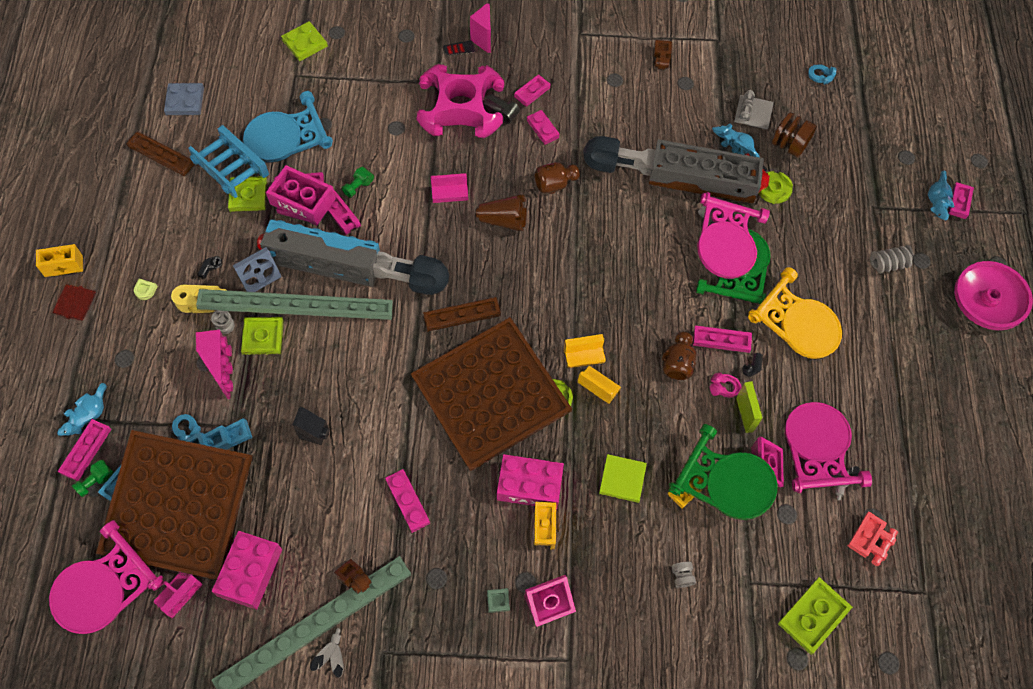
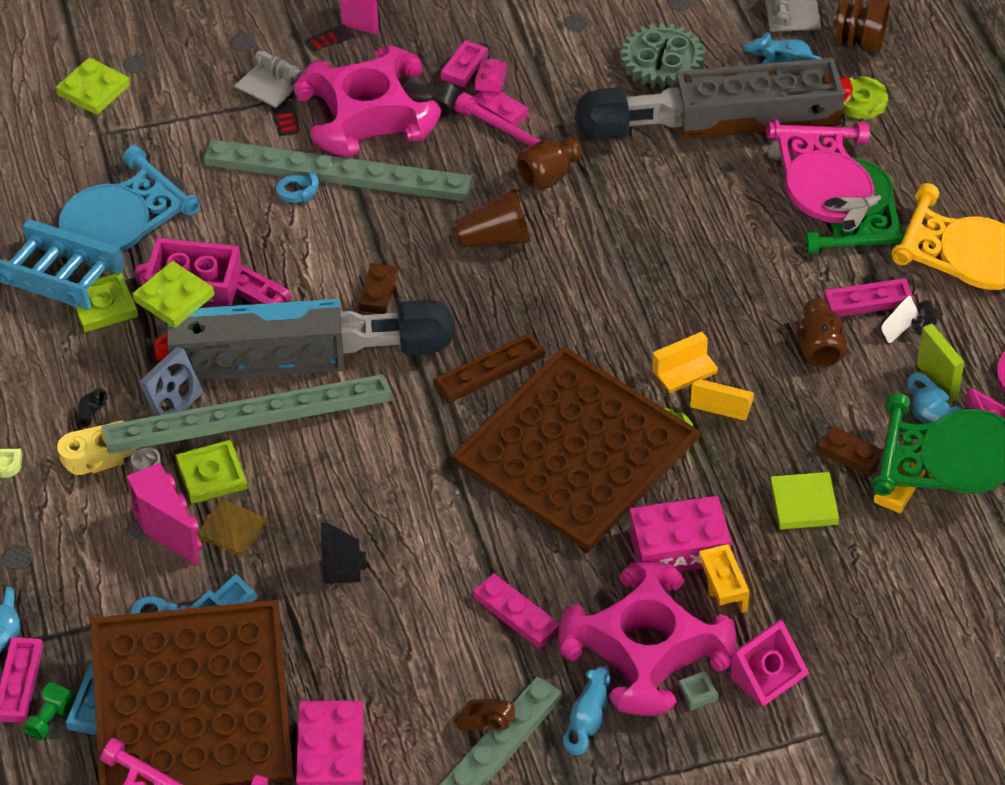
camera: 15 degrees left, 15 degrees down
(259, 380) = (232, 527): none -> clear yellow piece
(277, 209) = (173, 294): none -> lime plate
(361, 177) = (264, 236): green leg -> none
(405, 147) = (310, 183): none -> dark azure piece
(409, 67) = (270, 79): none -> light grey hinge
(410, 96) = (286, 118): none -> black sticker
(416, 235) = (378, 288): none -> reddish brown plate
(420, 594) = (587, 710): none -> dark azure animal
(426, 143) = (339, 170): none -> sand green plate
(449, 188) = (400, 215): dark pink panel -> none
(470, 576) = (642, 664): none -> dark pink piece
(522, 121) = (467, 105): none -> dark pink piece
(544, 104) = (491, 75): none -> dark pink plate
(649, 112) = (645, 50): none -> sand green gear
(667, 450) = (850, 451): none -> reddish brown plate
(683, 574) = (938, 587): light grey wheel -> none
(717, 389) = (886, 359): dark pink piece -> none
(732, 433) = (930, 402): none -> dark azure animal
(737, 361) = (900, 319): none -> white sticker
(738, 271) = (856, 206): none -> light grey piece

